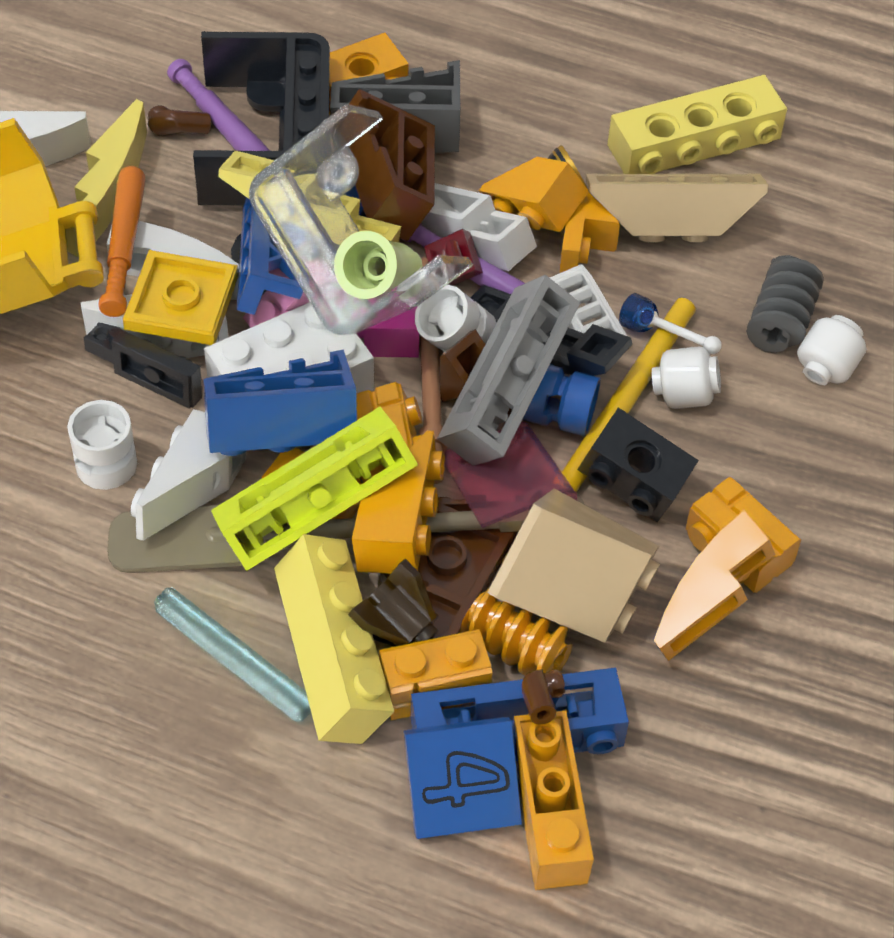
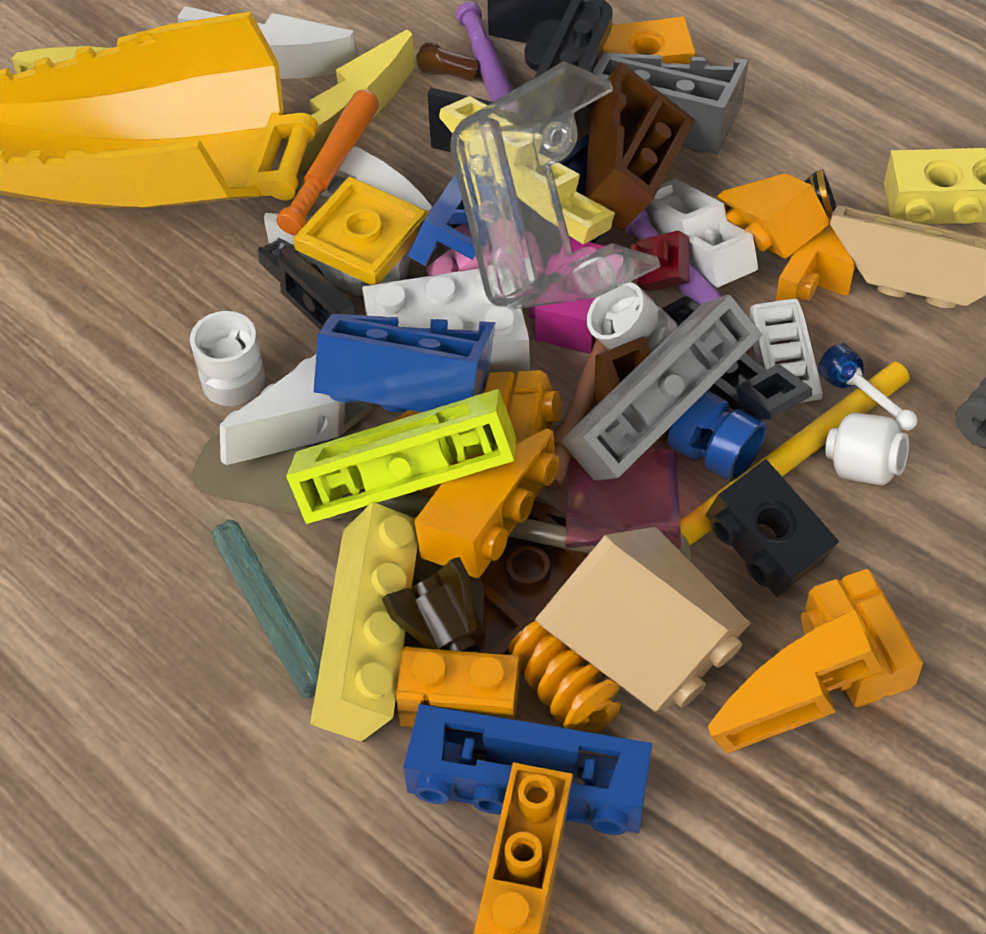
camera: 25 degrees right, 0 degrees up
(372, 265) = (545, 239): yellowish green plant -> none
(462, 777) = (437, 811): blue tile -> none
(538, 691) = (547, 742): reddish brown arm -> none

